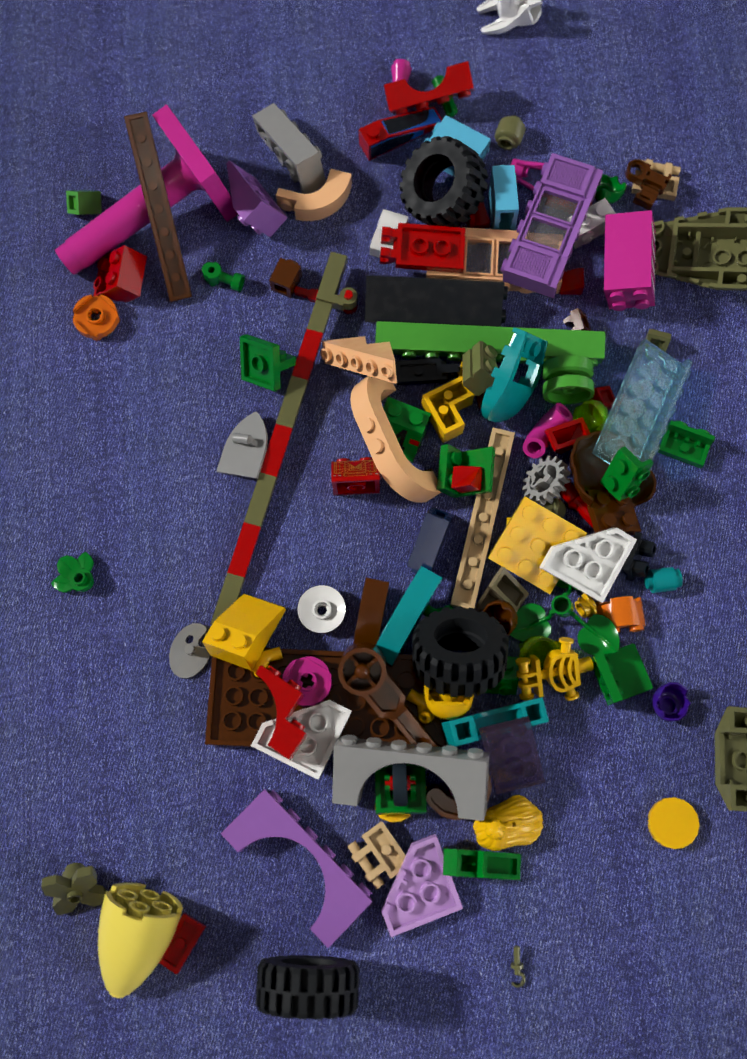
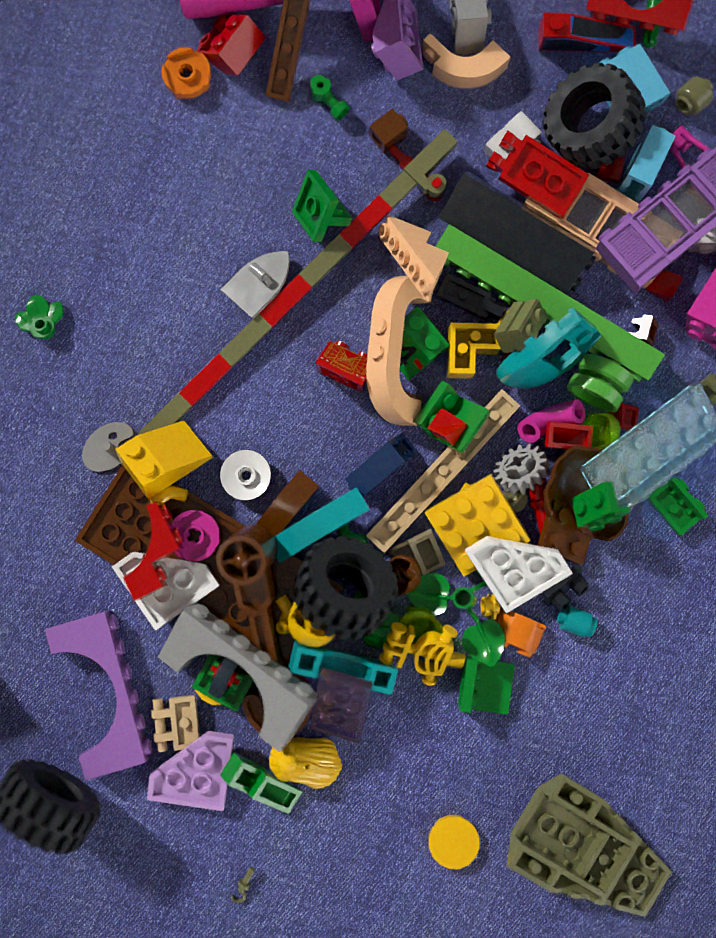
camera: 25 degrees right, 10 degrees up
(671, 702) = (515, 737): dark purple hair -> none

